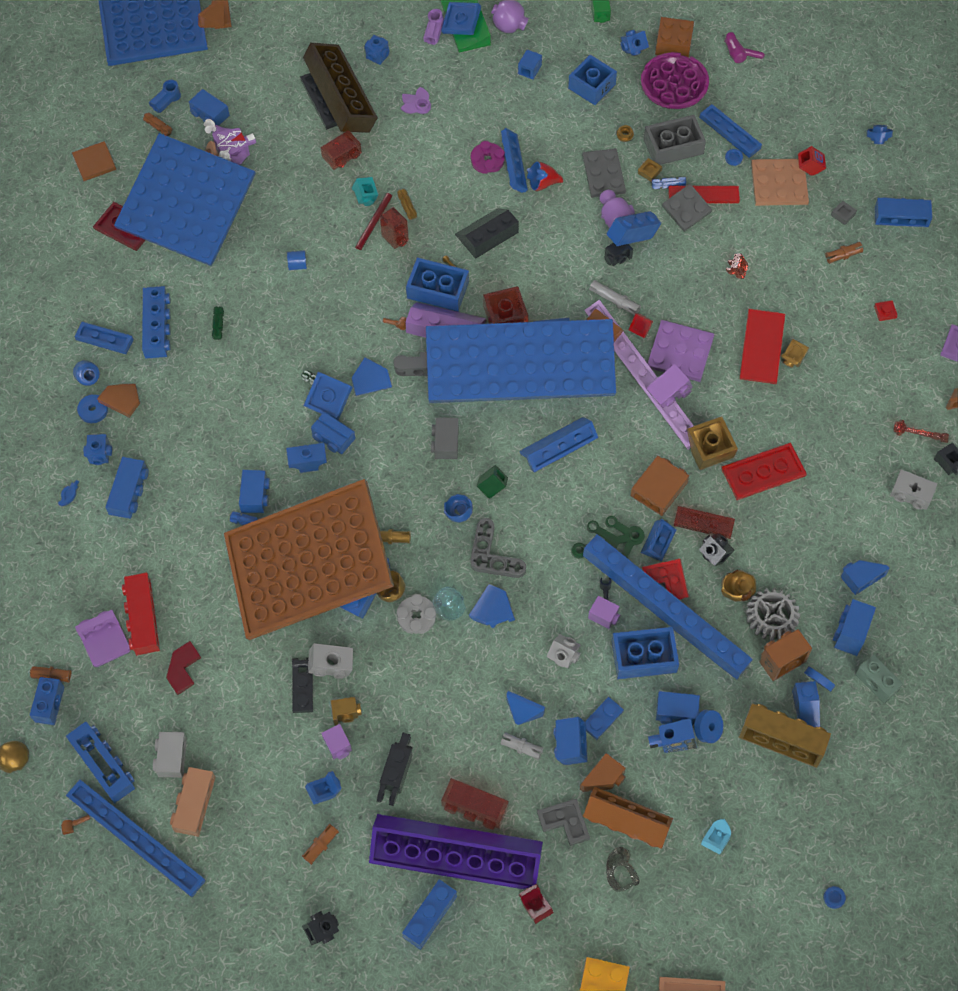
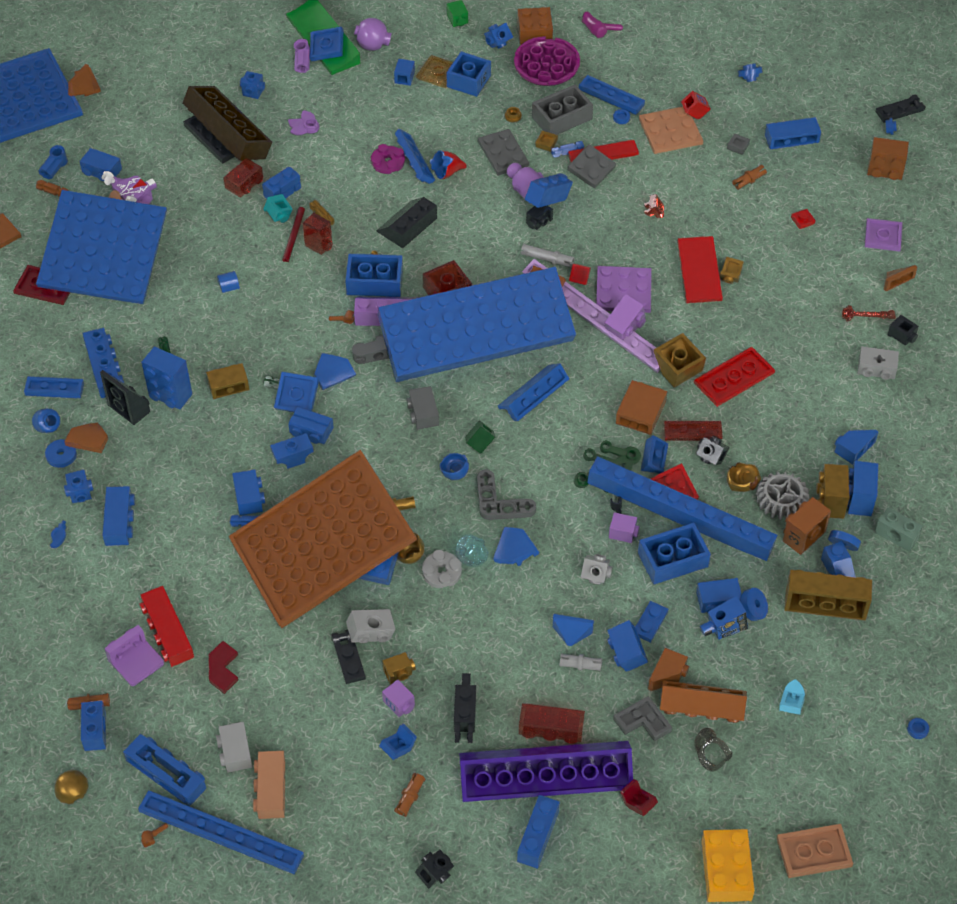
camera: 15 degrees left, 10 degrees down
(164, 366) = (124, 399): none -> black slope
(206, 355) = (167, 378): none -> blue brick
(267, 367) = (227, 381): none -> pearl gold brick
(376, 165) = (282, 183): none -> blue brick
(560, 68) = (435, 71): none -> clear orange tile
(823, 623) = (834, 489): none -> pearl gold brick

